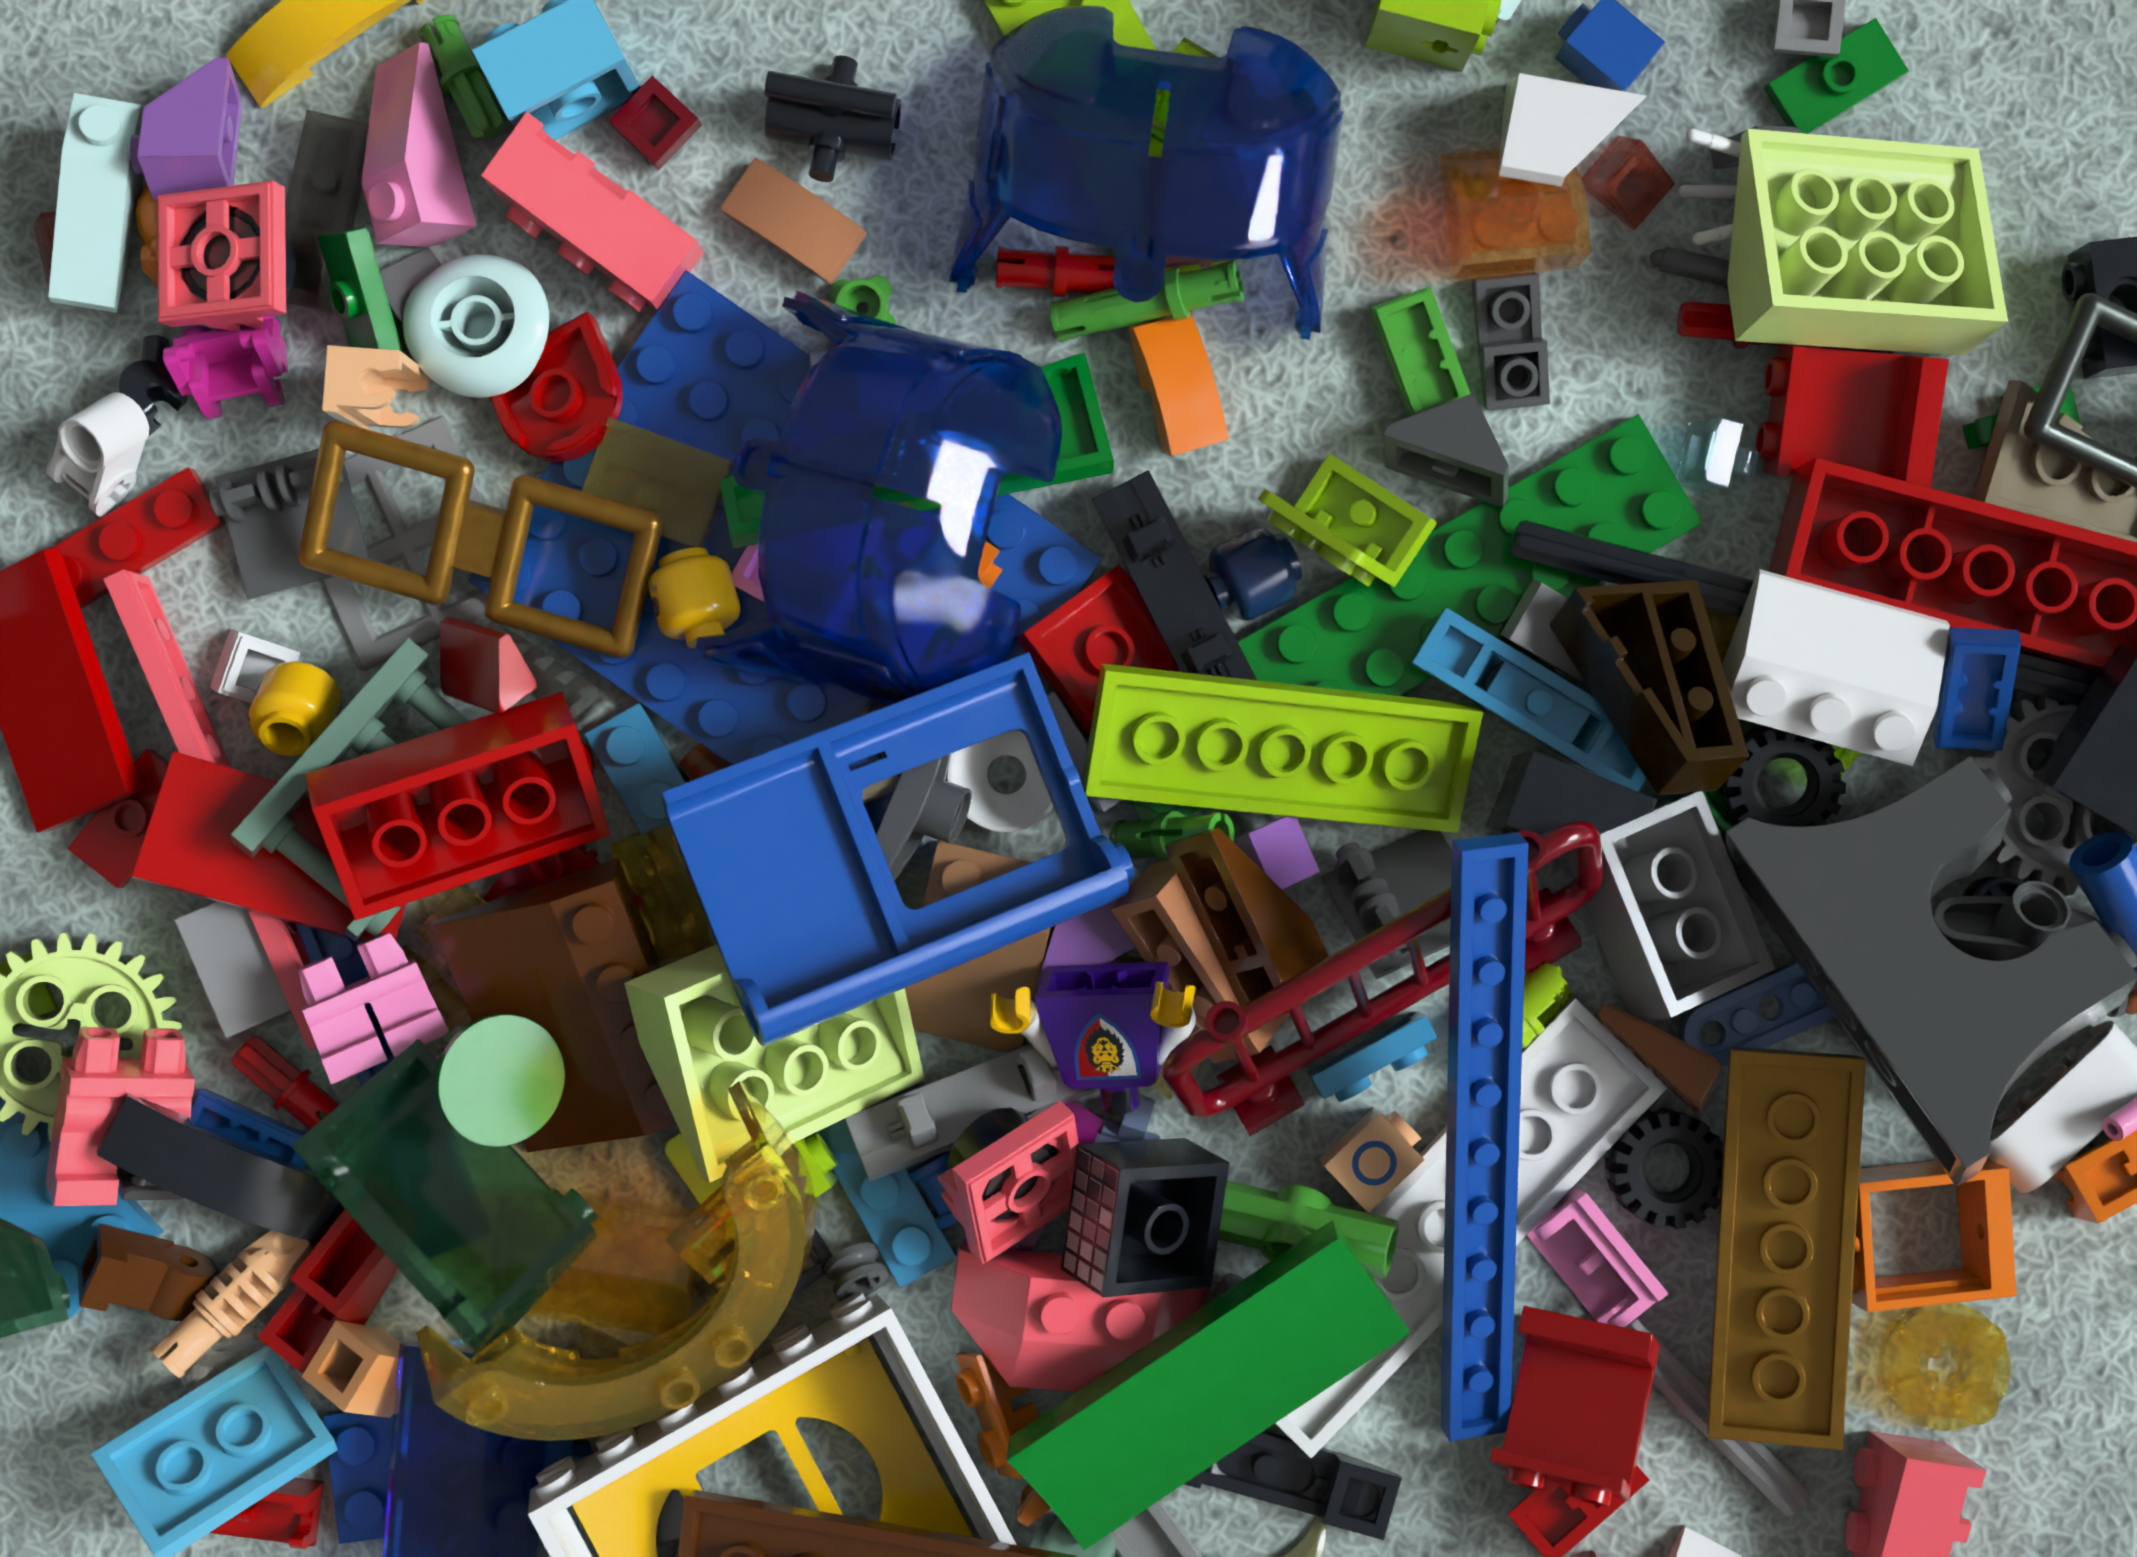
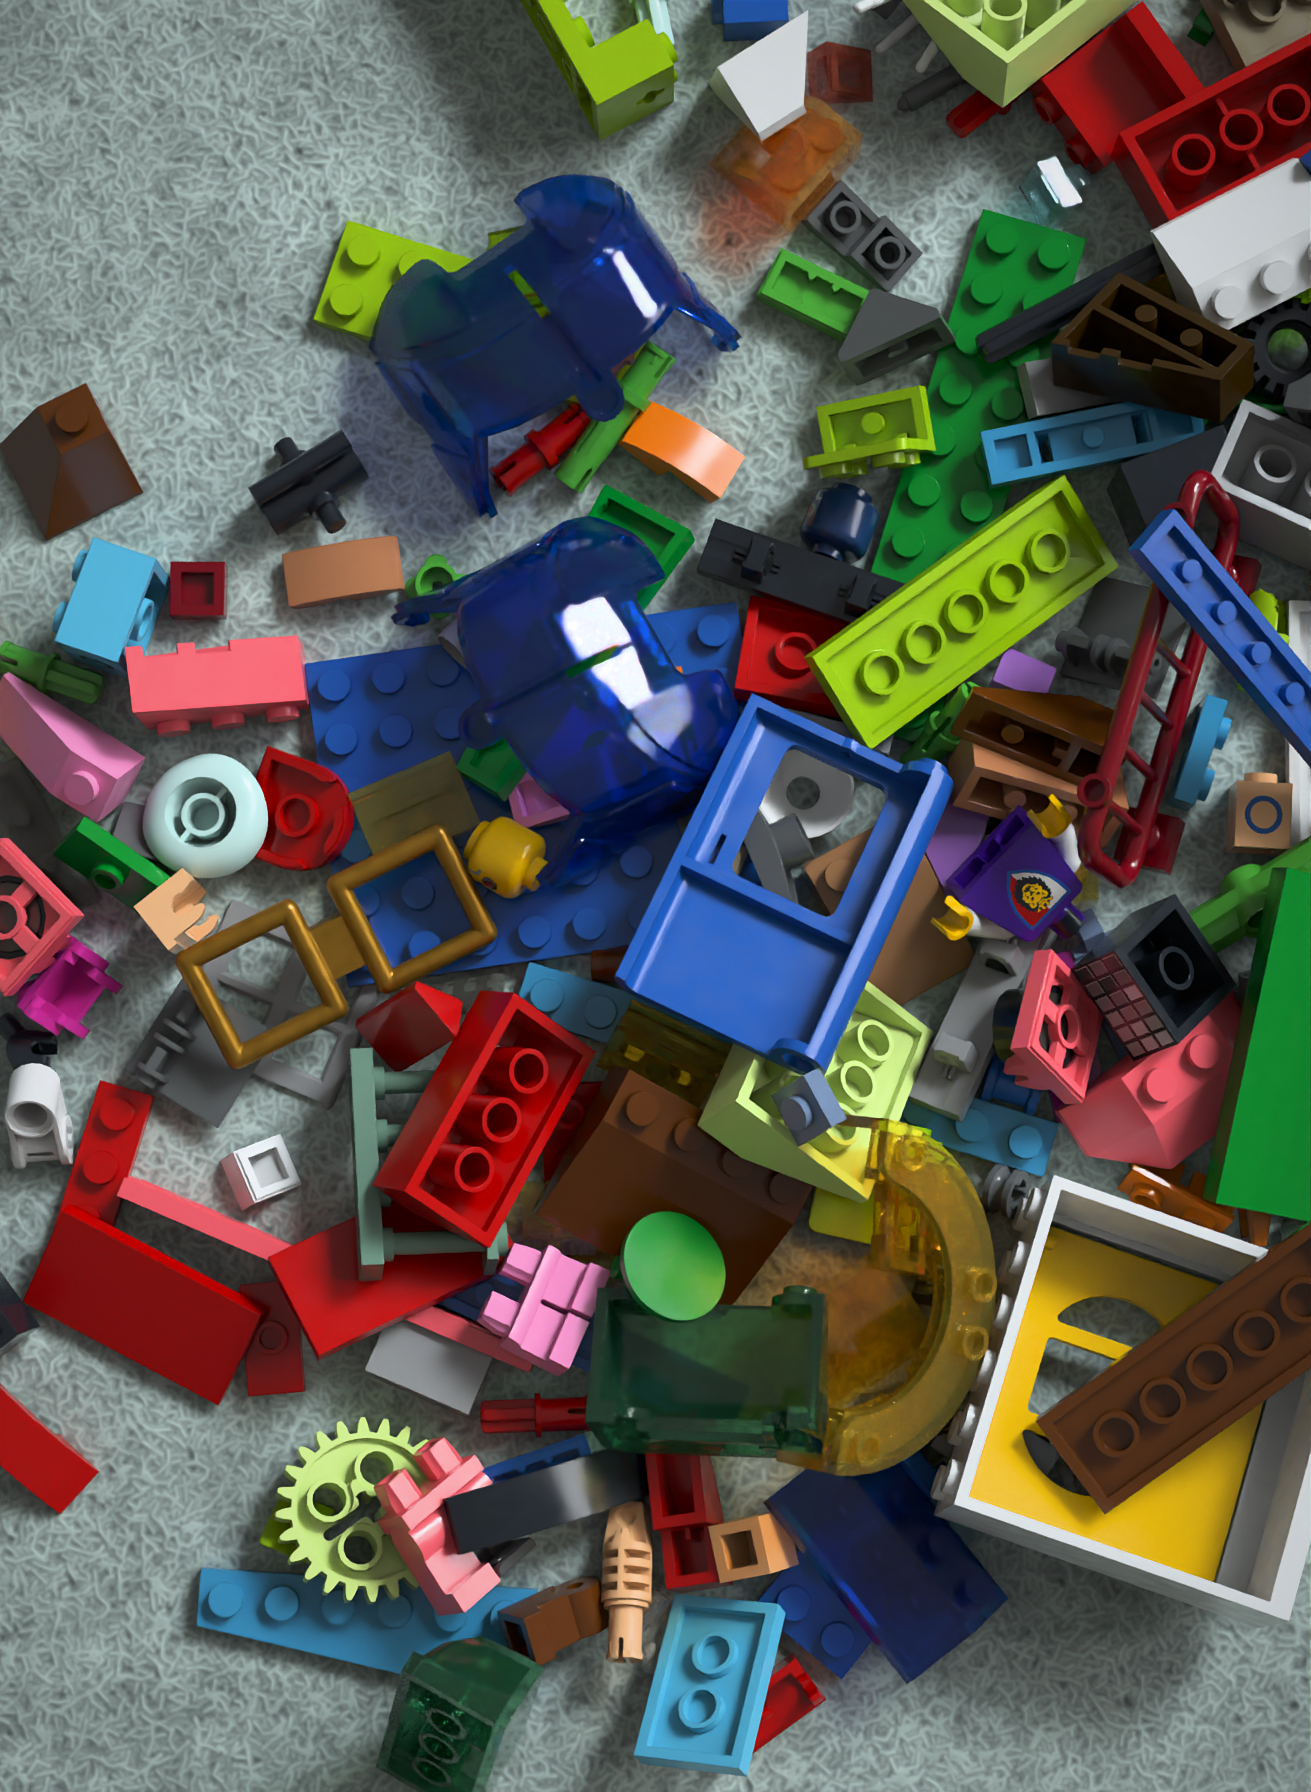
camera: 40 degrees left, 5 degrees down
(293, 707) = (314, 1166): yellow head -> none
(723, 1061) = (808, 1107): none -> sand blue plate

